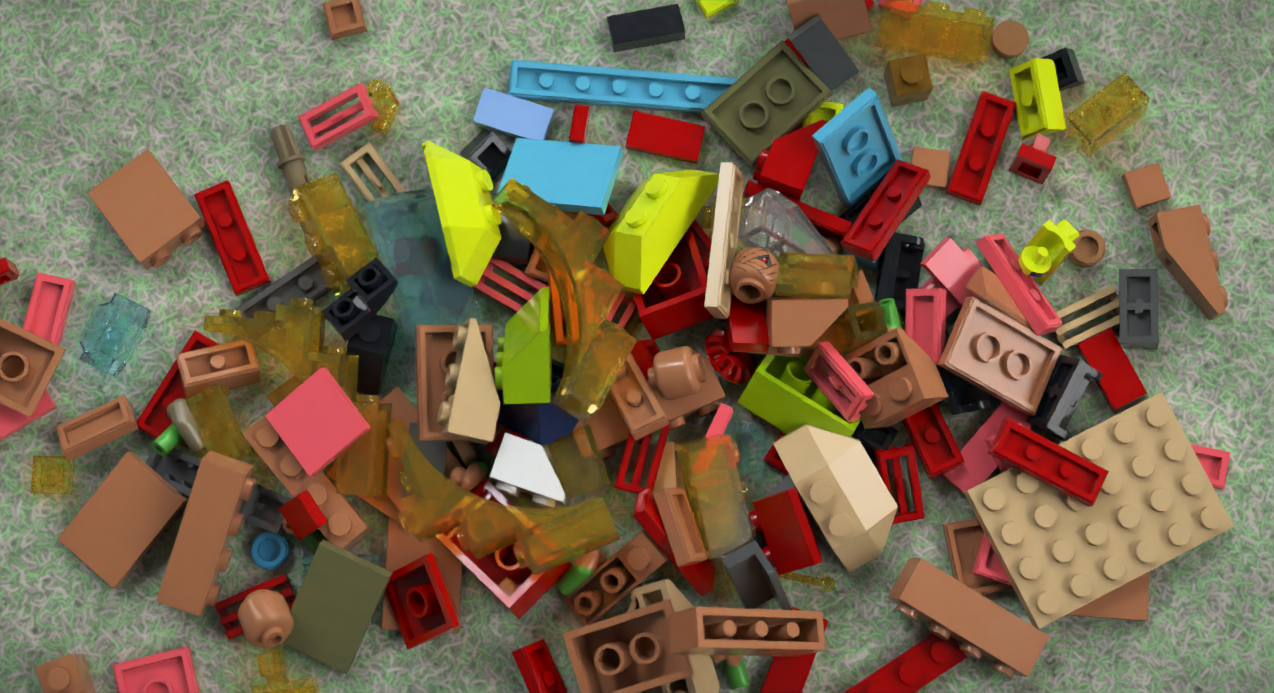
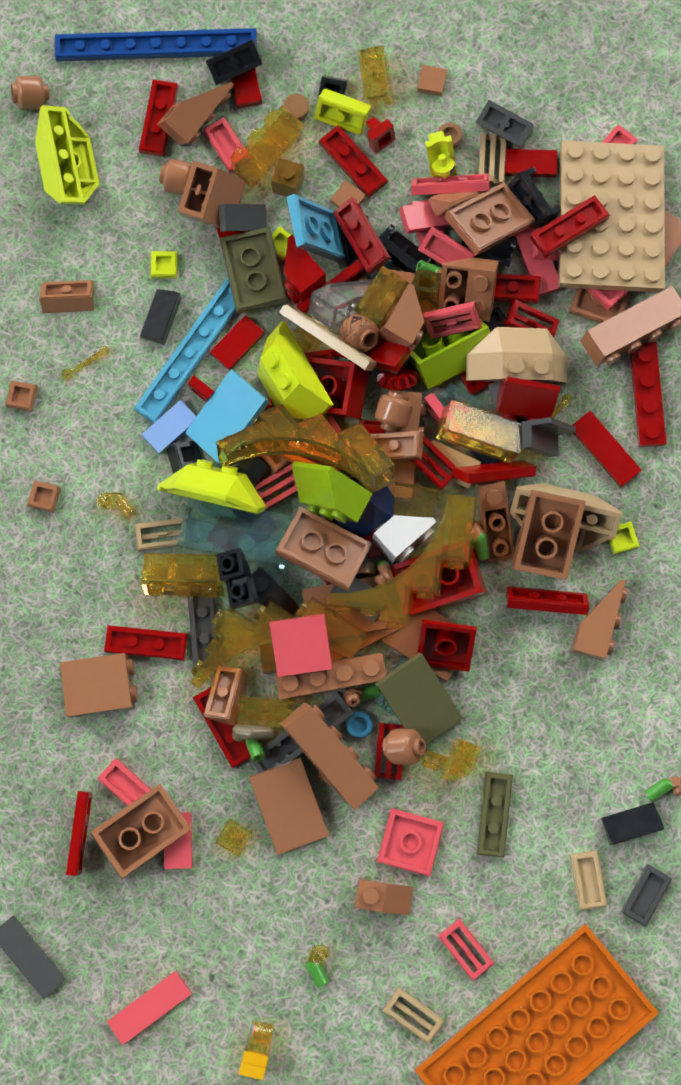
camera: 55 degrees left, 0 degrees up
(96, 427) = (220, 792): nougat tile -> none
(113, 334) = (164, 750): clear light blue slope -> none
(290, 160) = (117, 579): dark tan axle -> none
(303, 514) = (353, 687): red tile -> none
(344, 129) = (97, 533): coral tile -> none
(472, 397) = (337, 538): tan slope -> none
(680, 526) = (488, 461): nougat tile -> none
(735, 670) = (578, 480): bright green arm -> none
(746, 632) = (576, 456): nougat brick -> none
(1185, 251) = (487, 79): nougat slope -> none

